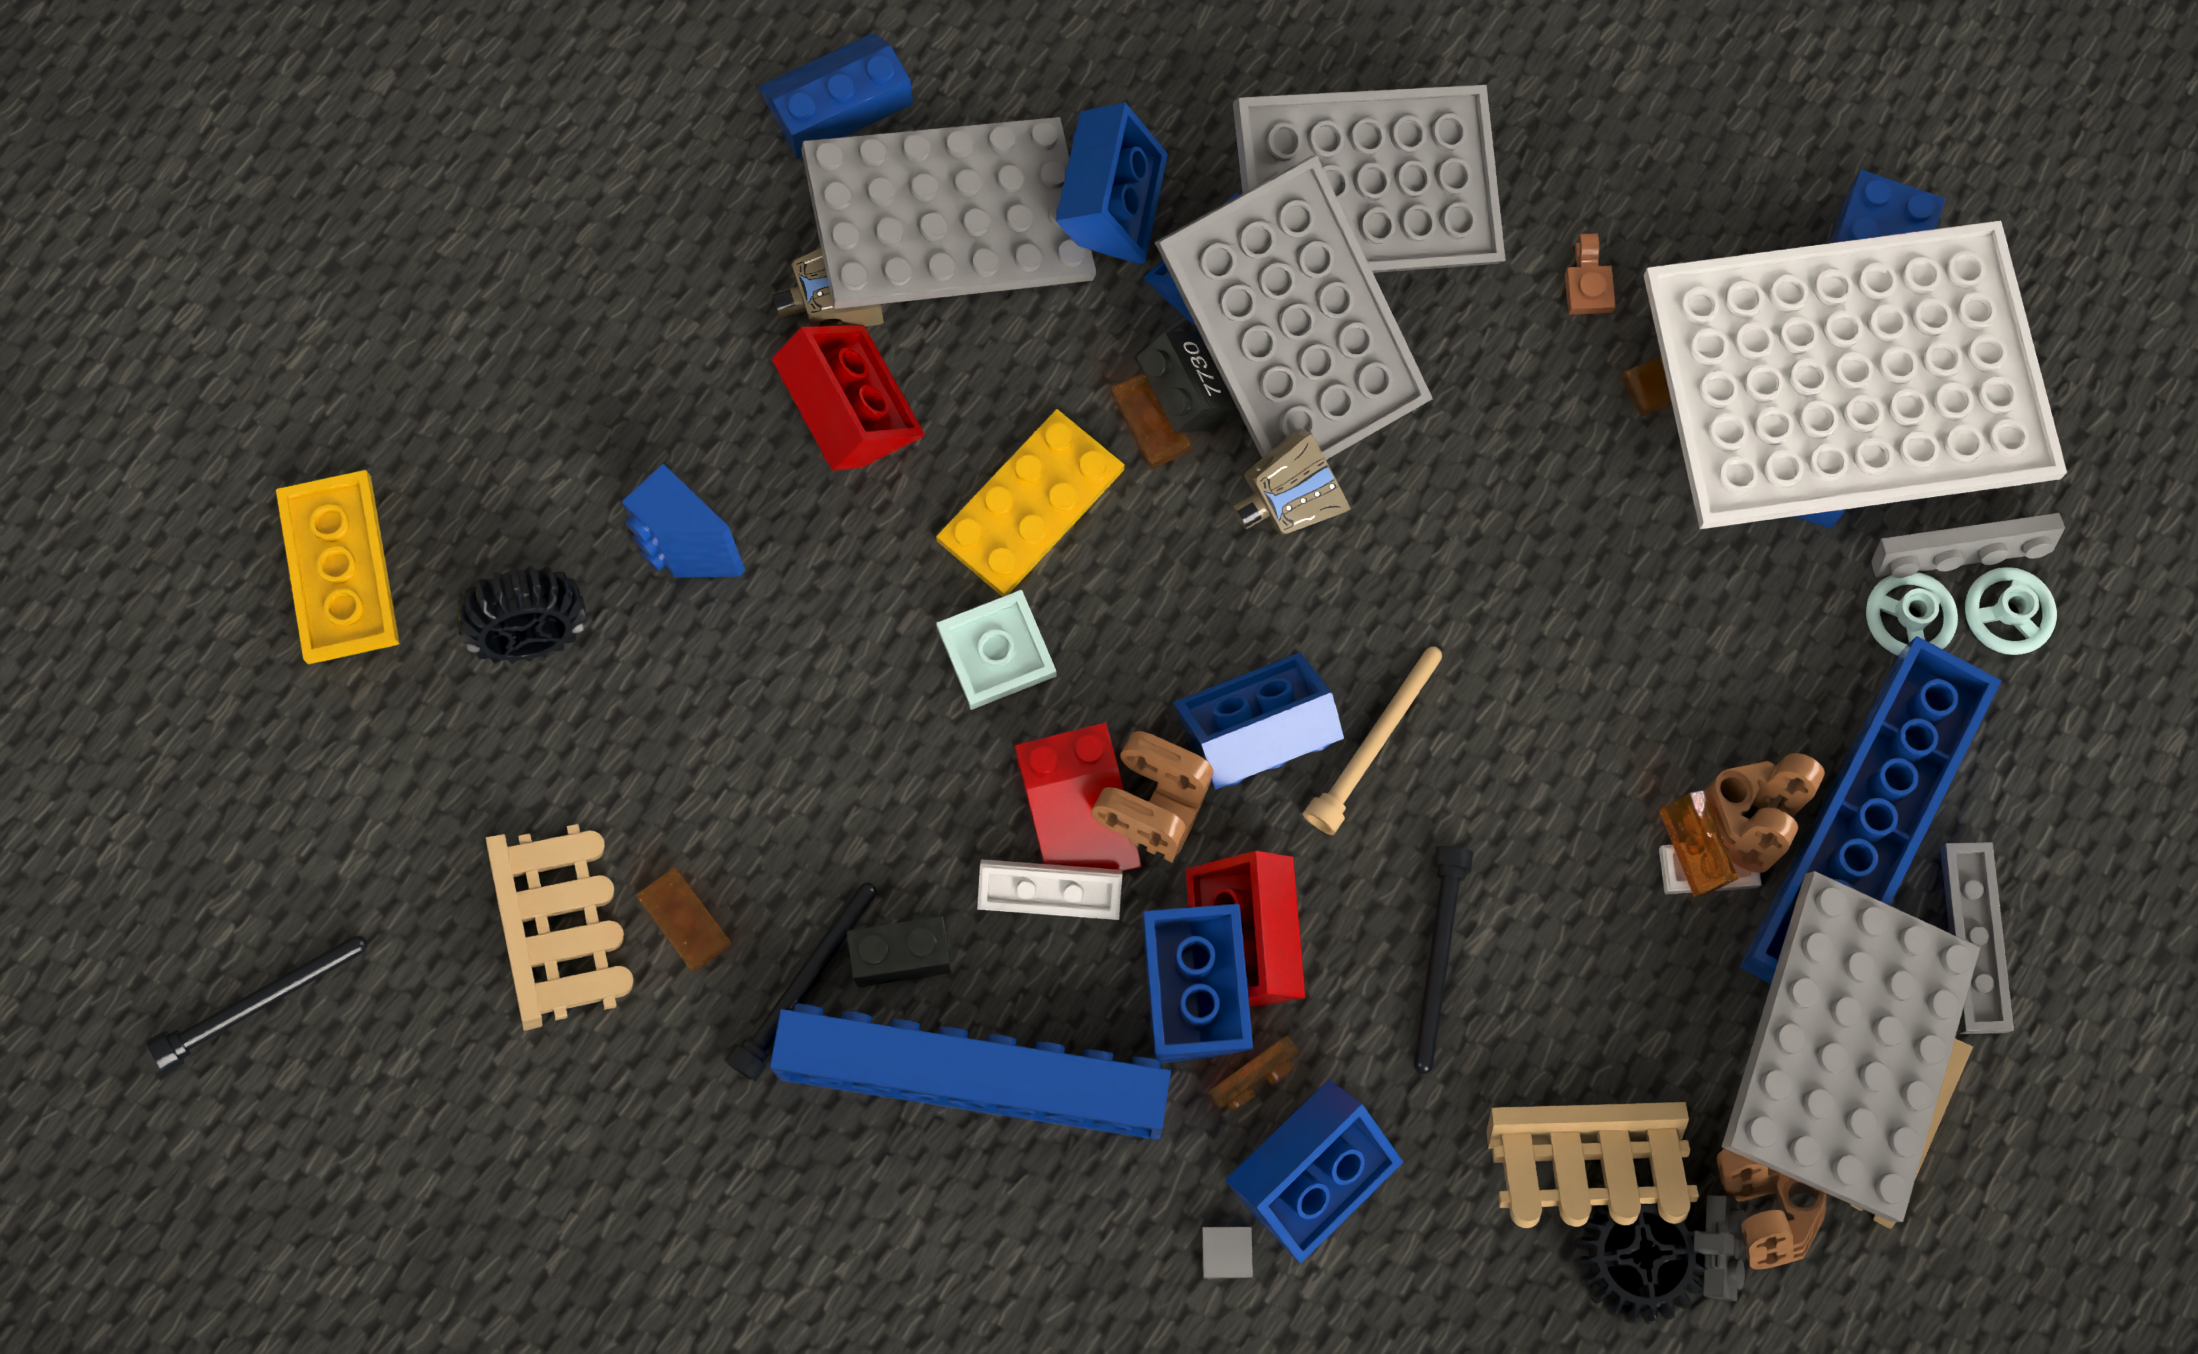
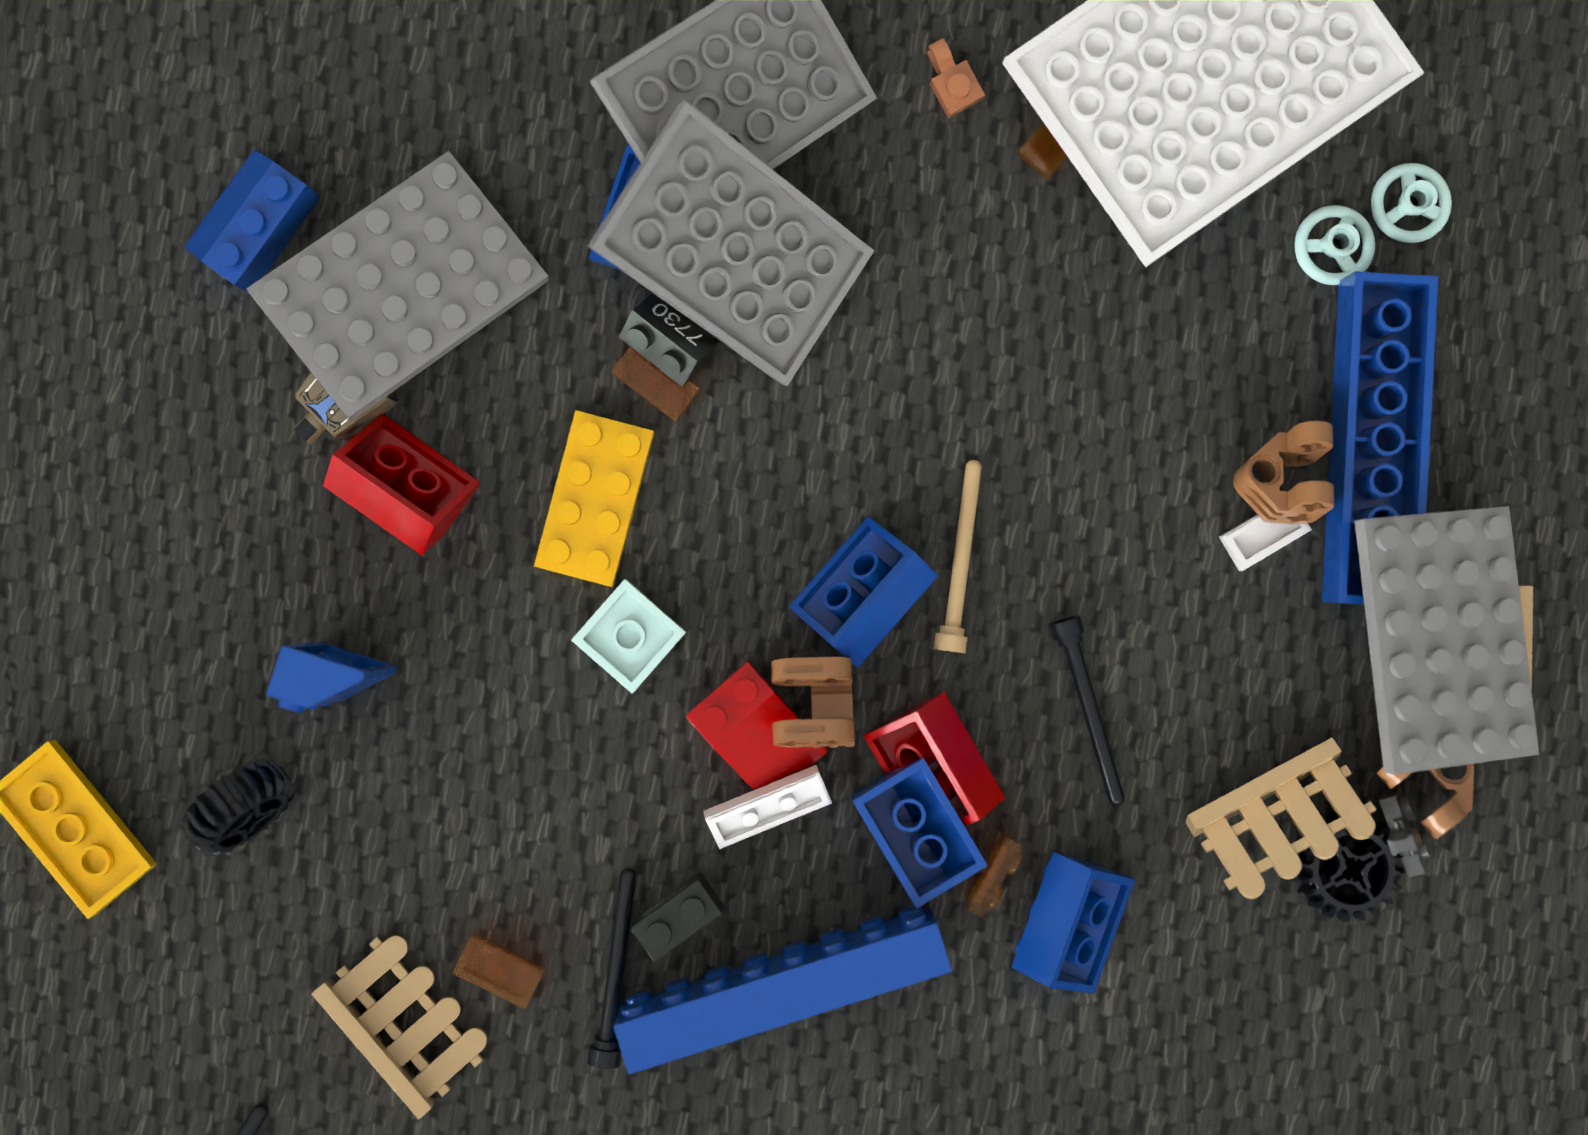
camera: 20 degrees left, 15 degrees up
(1112, 183) = (522, 193): blue slope -> none
(1227, 1252) = (1036, 1013): light grey tile -> none
(1291, 487) = (798, 388): dark tan torso -> none
(1698, 844) = (1254, 526): clear orange plate -> none
(1967, 545) = (1346, 175): light grey plate -> none
(1976, 918) = (1493, 483): light grey plate -> none

